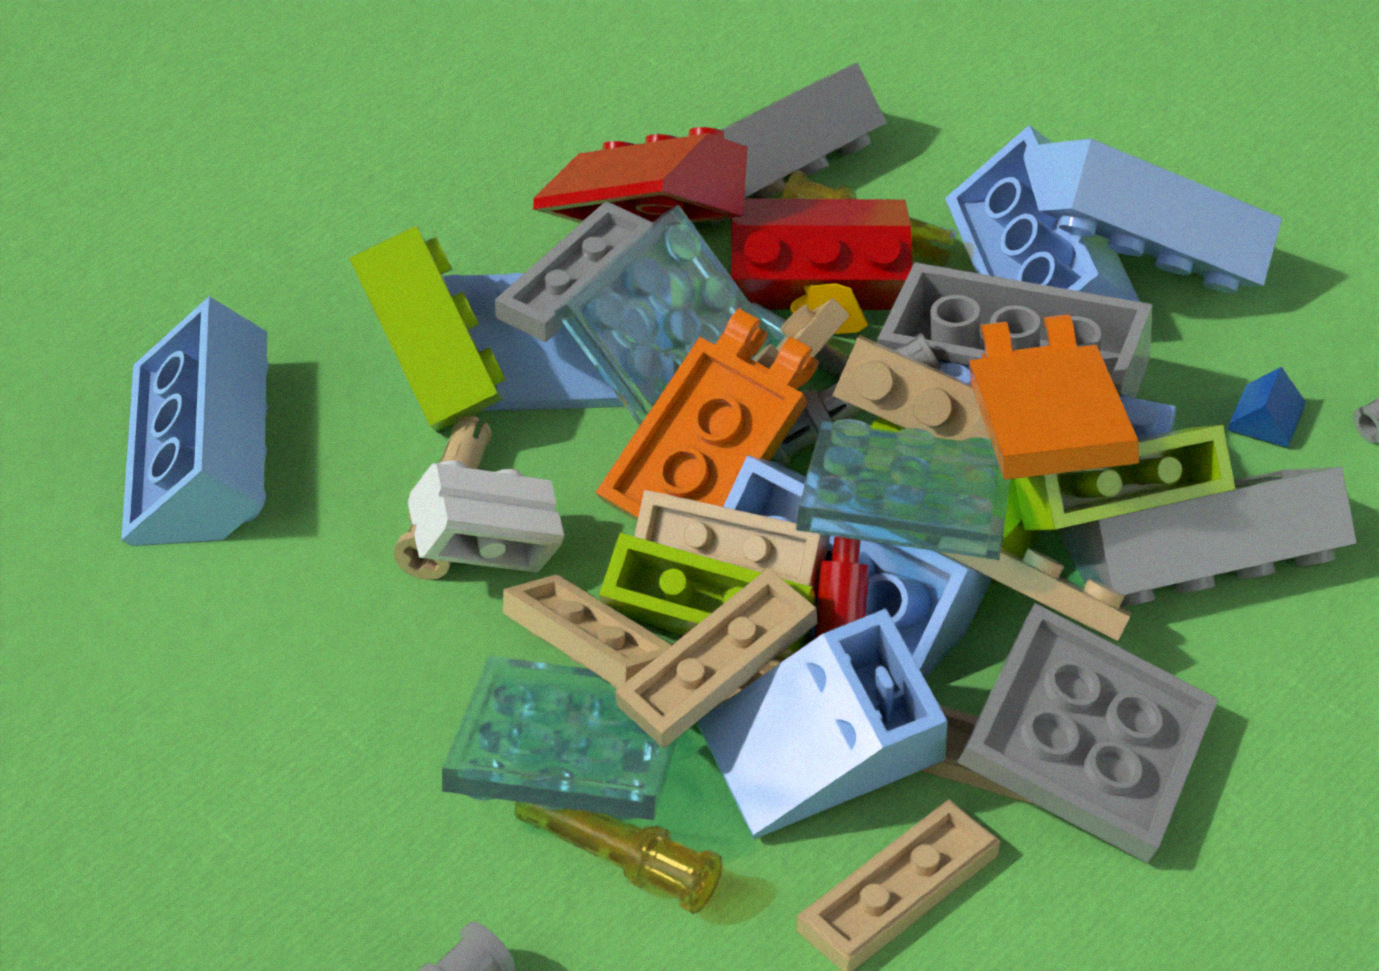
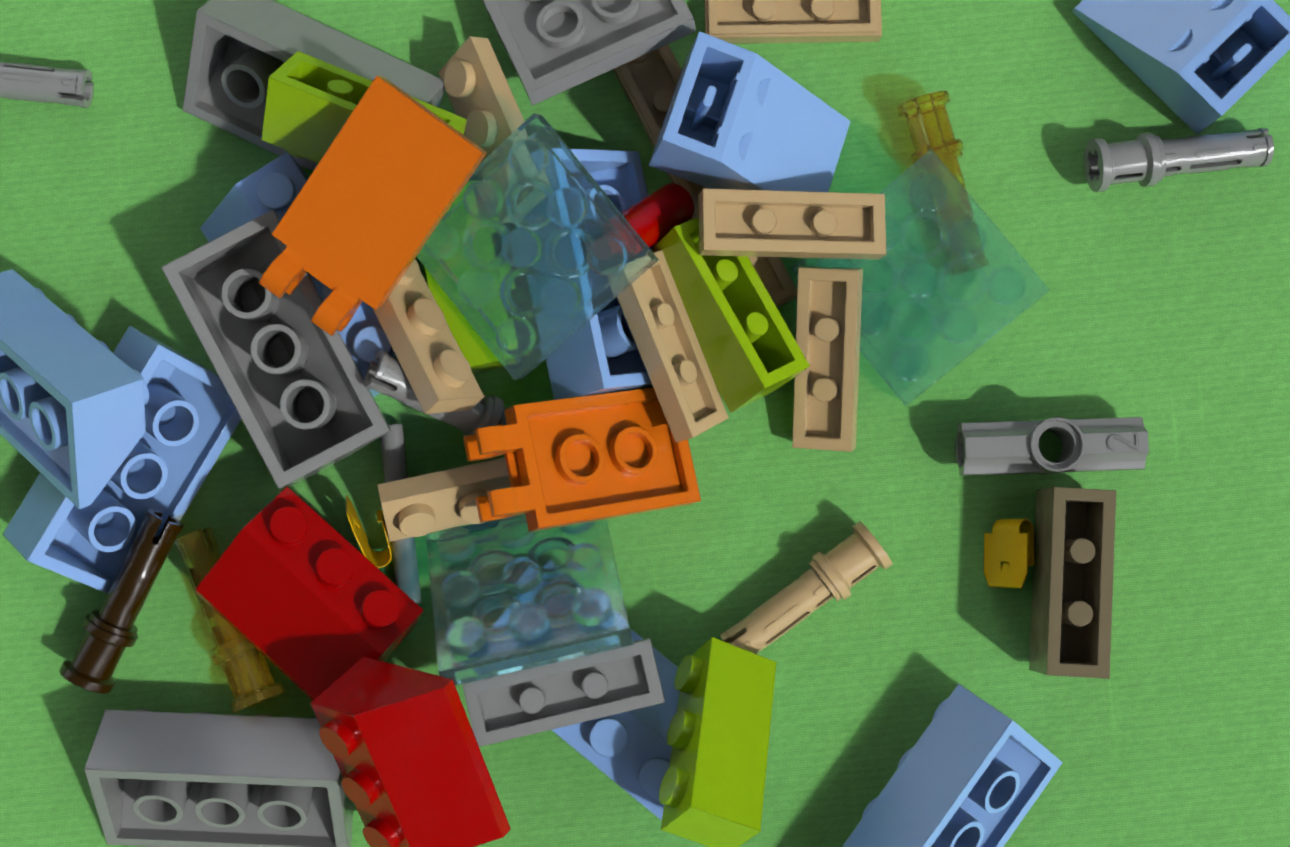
camera: 140 degrees left, 40 degrees up
(227, 622) = (1072, 582): none -> dark tan brick
(317, 646) = (1014, 546): none -> yellow piece
(329, 714) = (1086, 446): none -> light grey piece
(485, 517) = (821, 518): white brick -> none
(938, 167) = (113, 625): none -> dark brown pin
(1269, 409) = (138, 169): blue slope -> none

